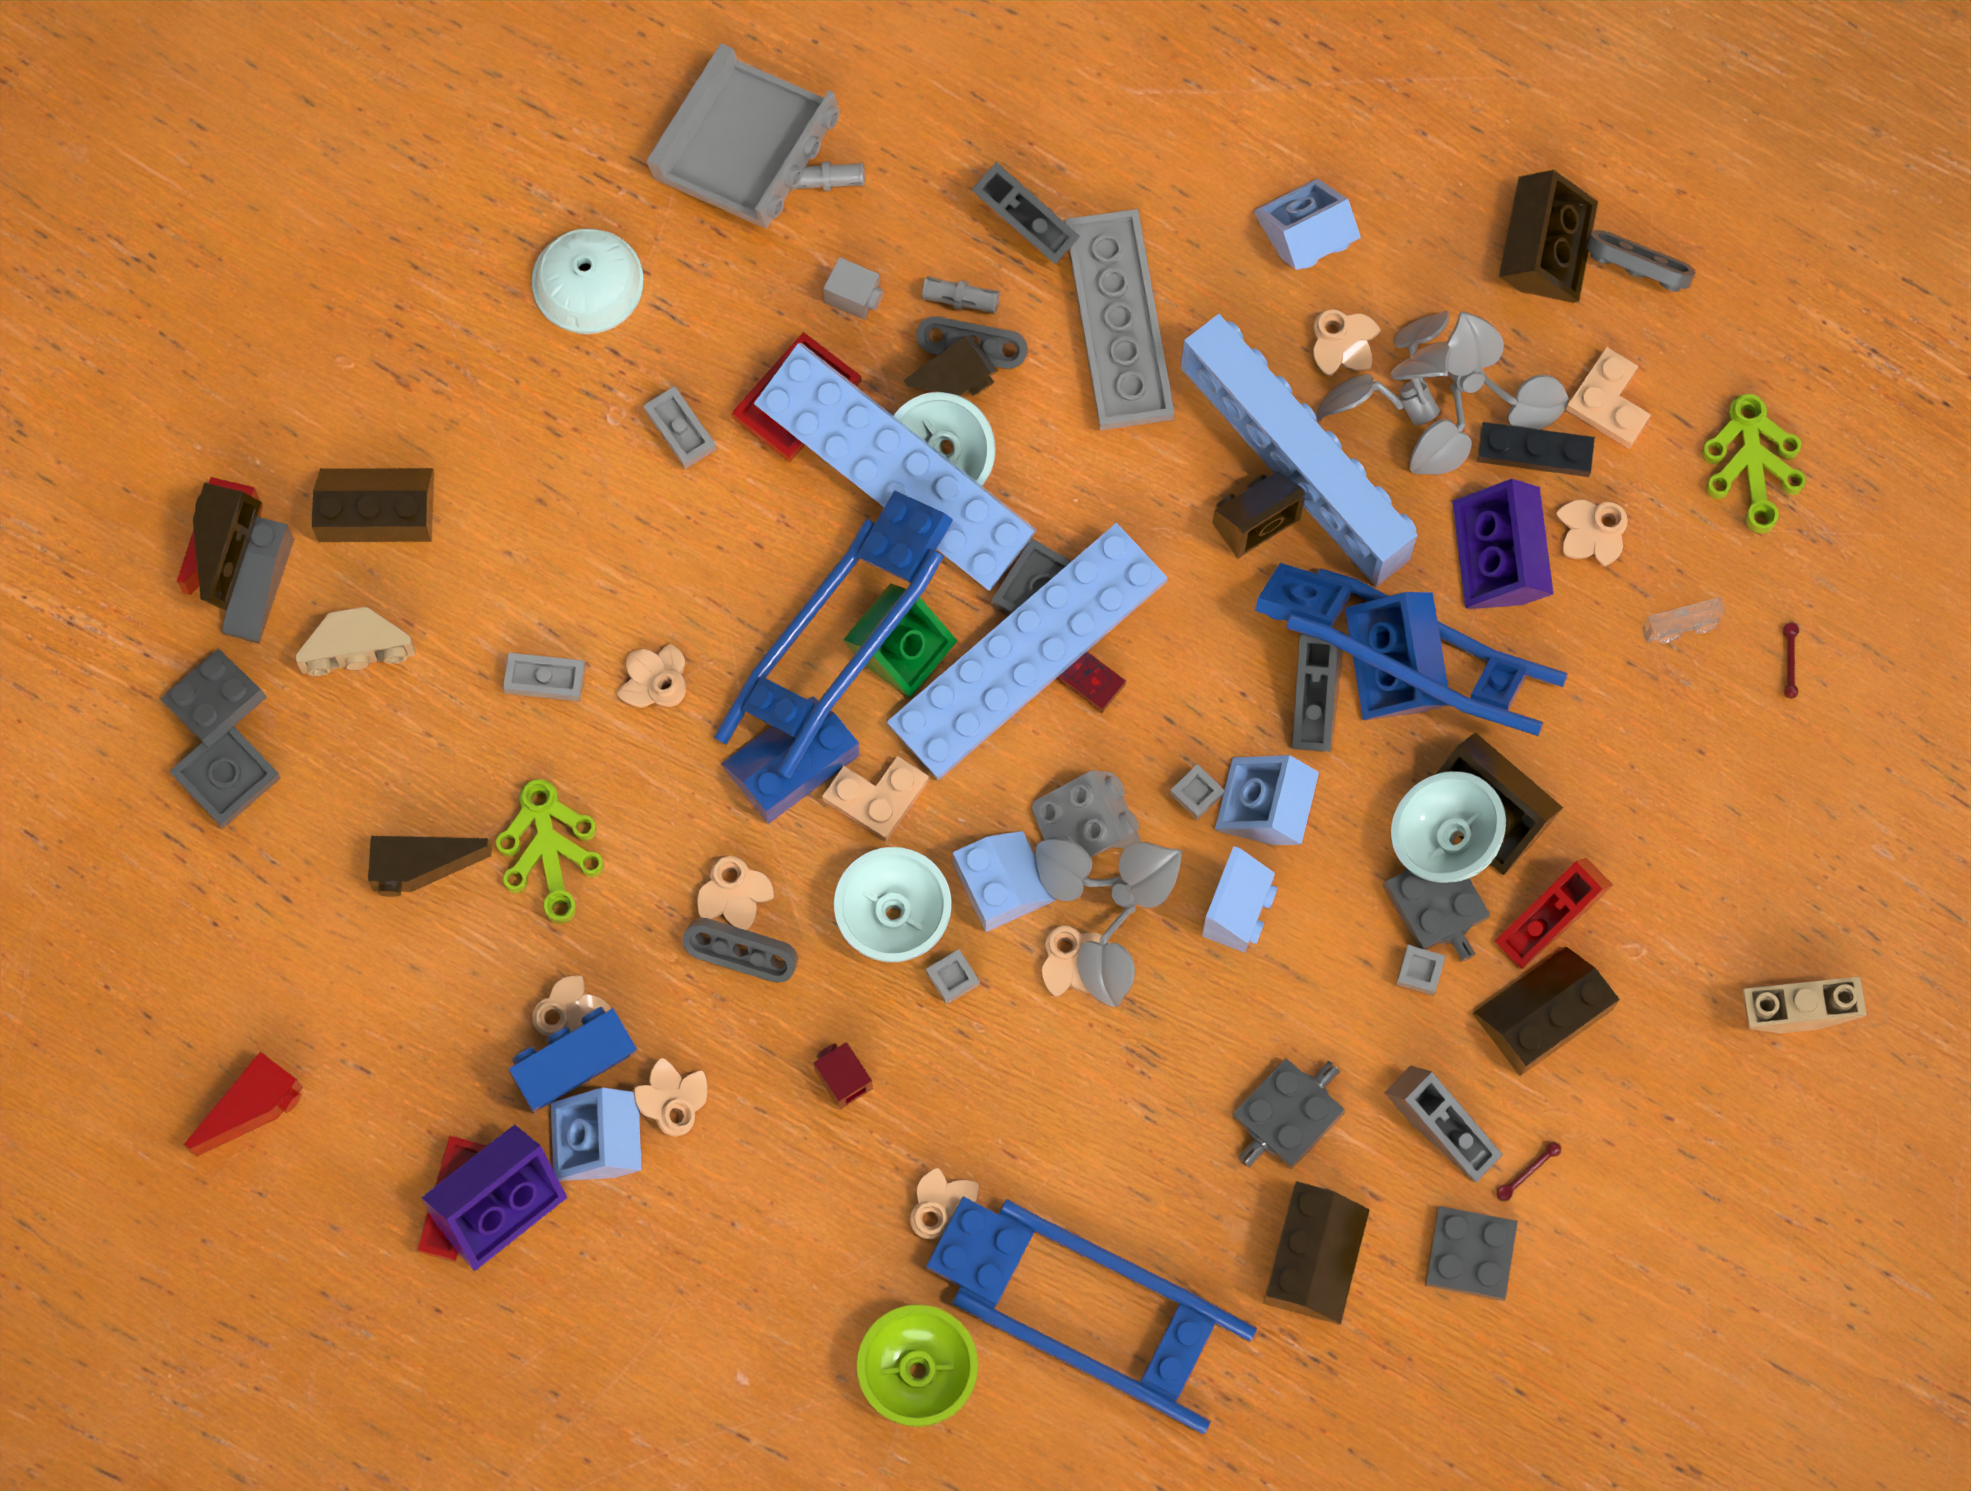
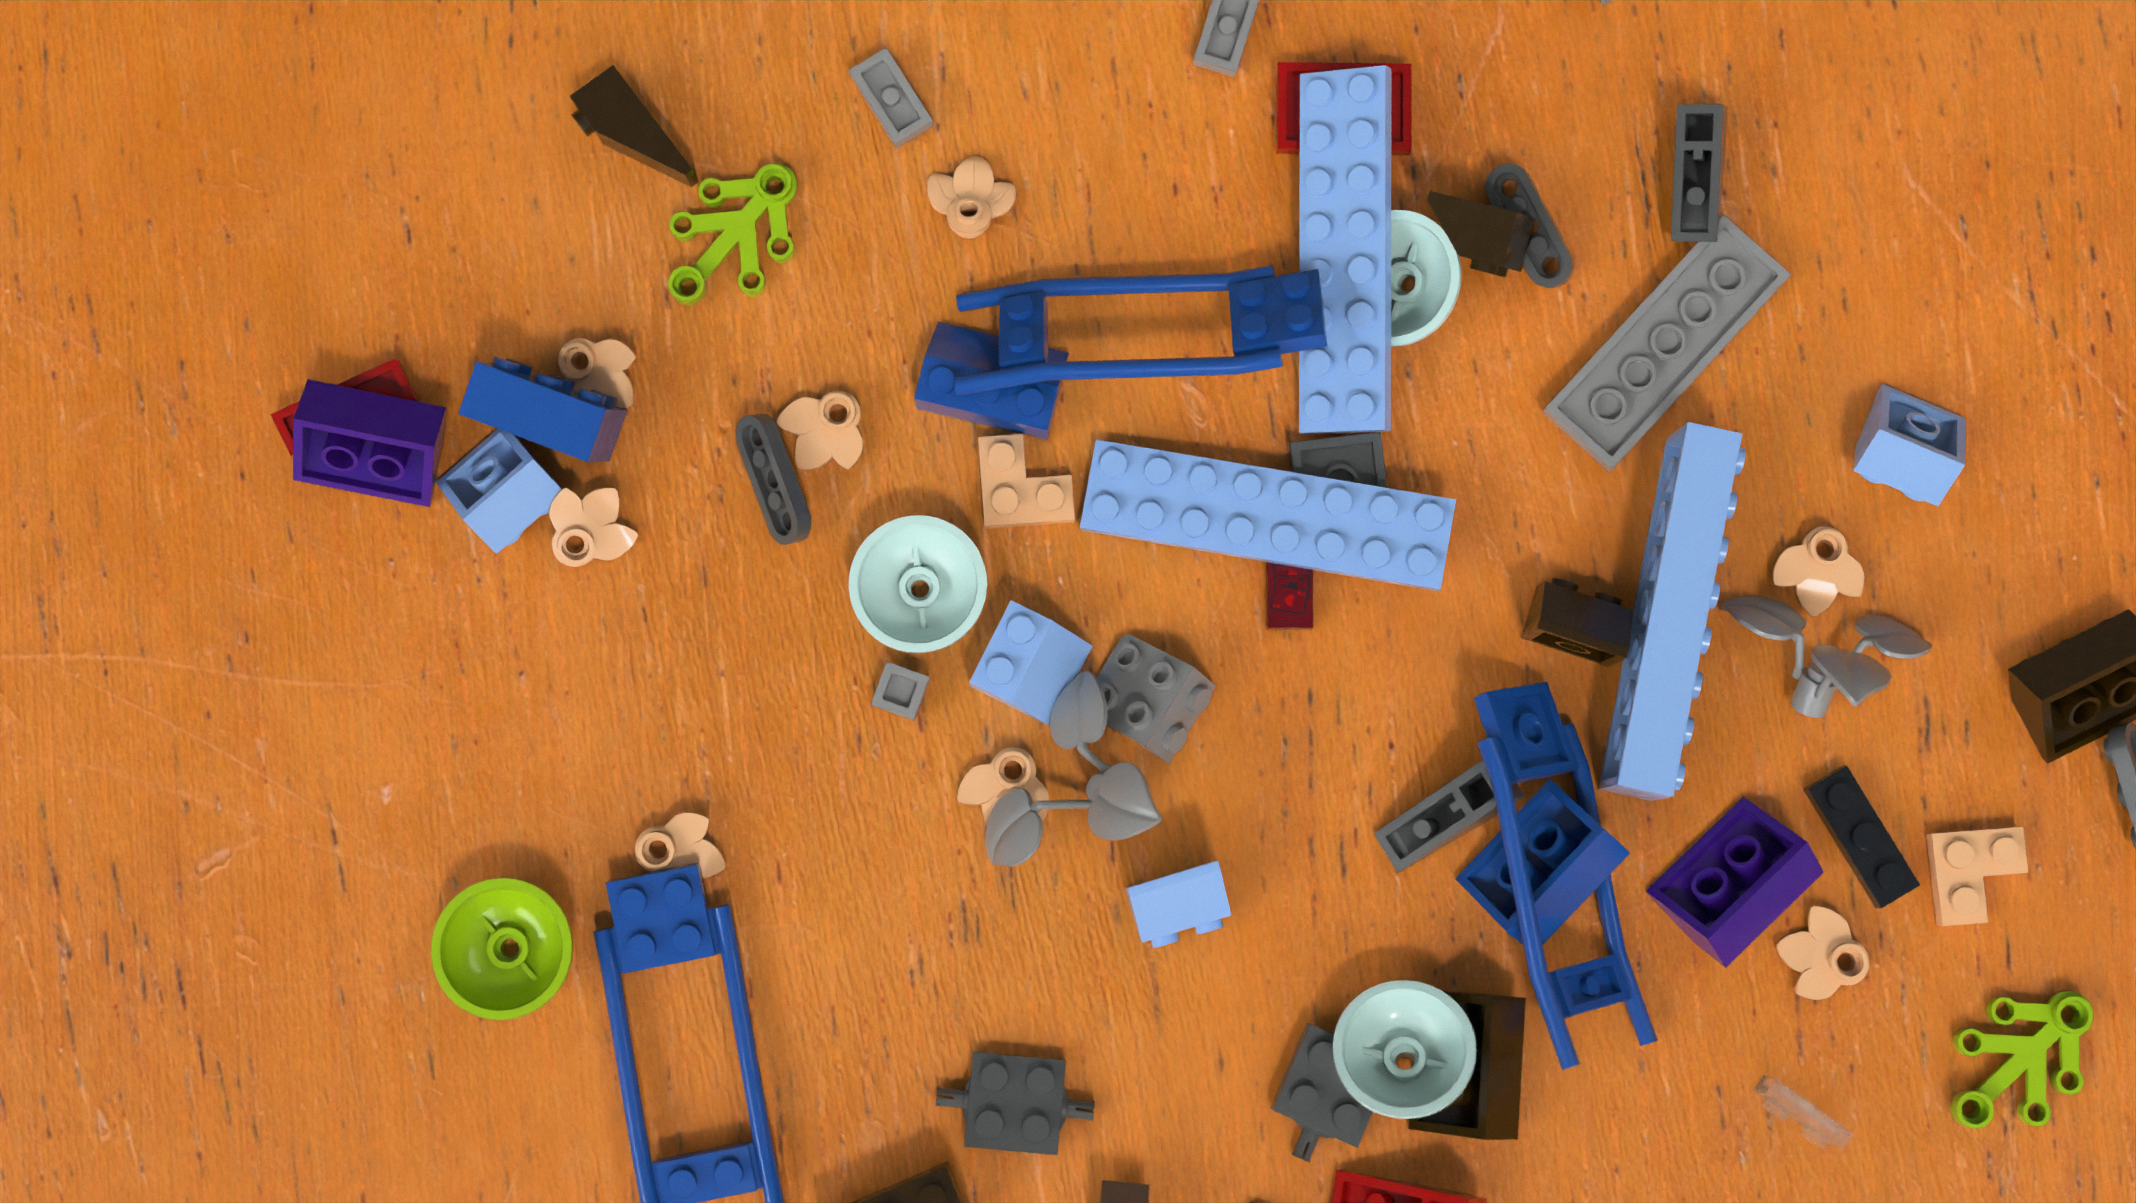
camera: 50 degrees right, 10 degrees up
(251, 1102) = (302, 160): red slope -> none
(842, 1074) = (728, 662): dark red brick -> none
(853, 289) = (1491, 75): light grey brick -> none
(911, 648) = (1184, 406): green slope -> none
(961, 295) = (1568, 178): light grey pin -> none
(1197, 792) = (1257, 778): light grey plate -> none
(1267, 799) = (1302, 850): light blue slope -> none
(1420, 970) = (1250, 1122): light grey plate -> none
(1477, 345) = (1910, 704): light grey plant -> none

